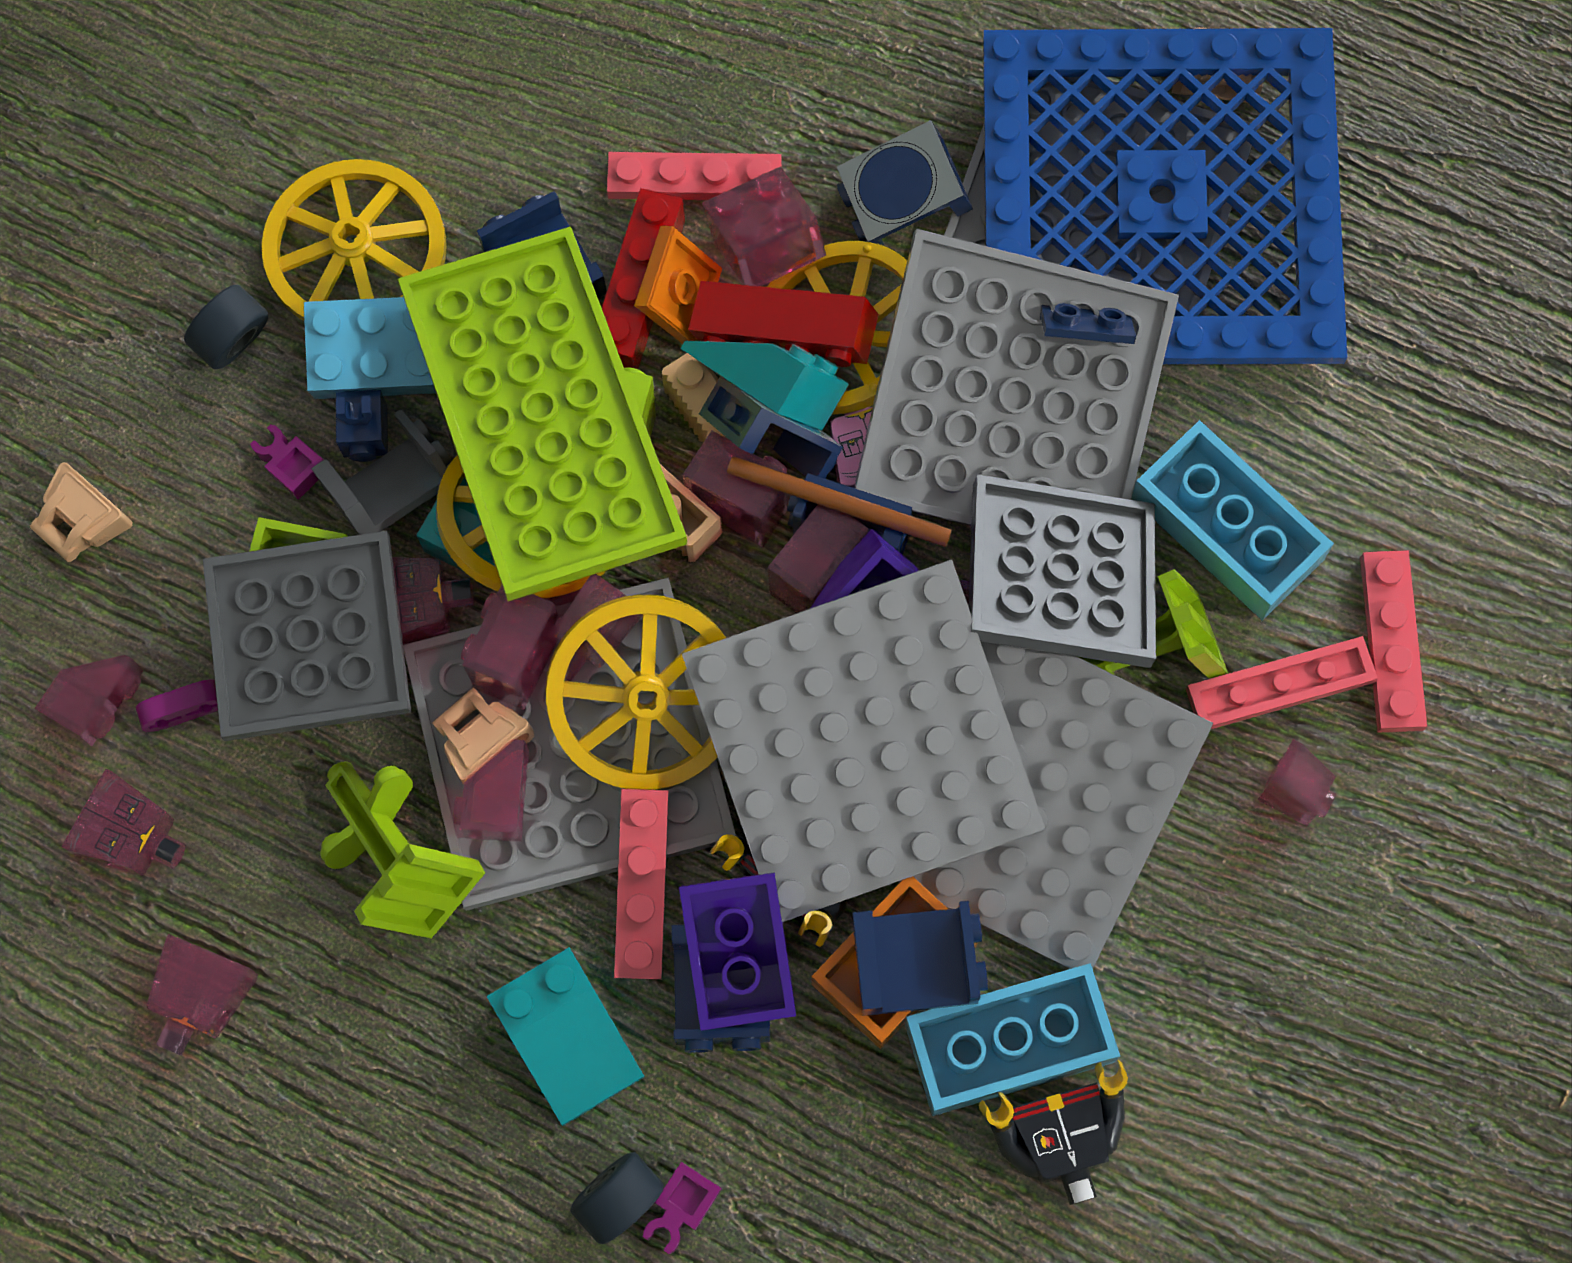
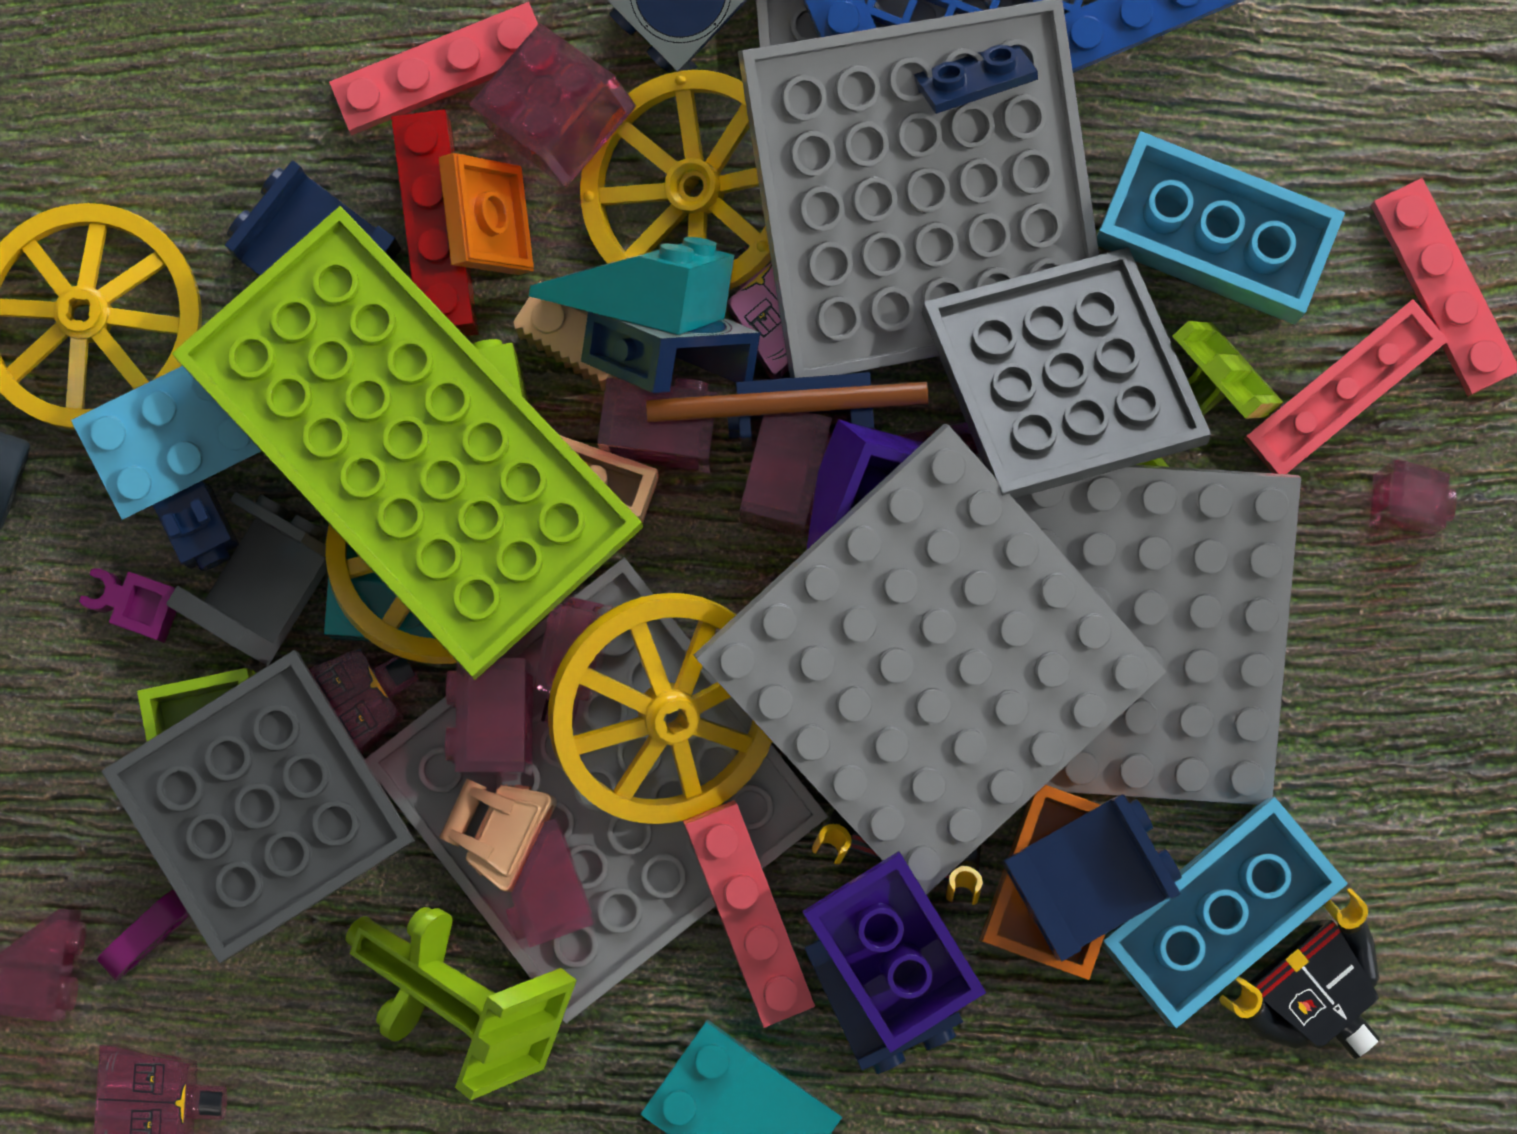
camera: 25 degrees left, 10 degrees up
(818, 322) = (626, 210): red brick -> none

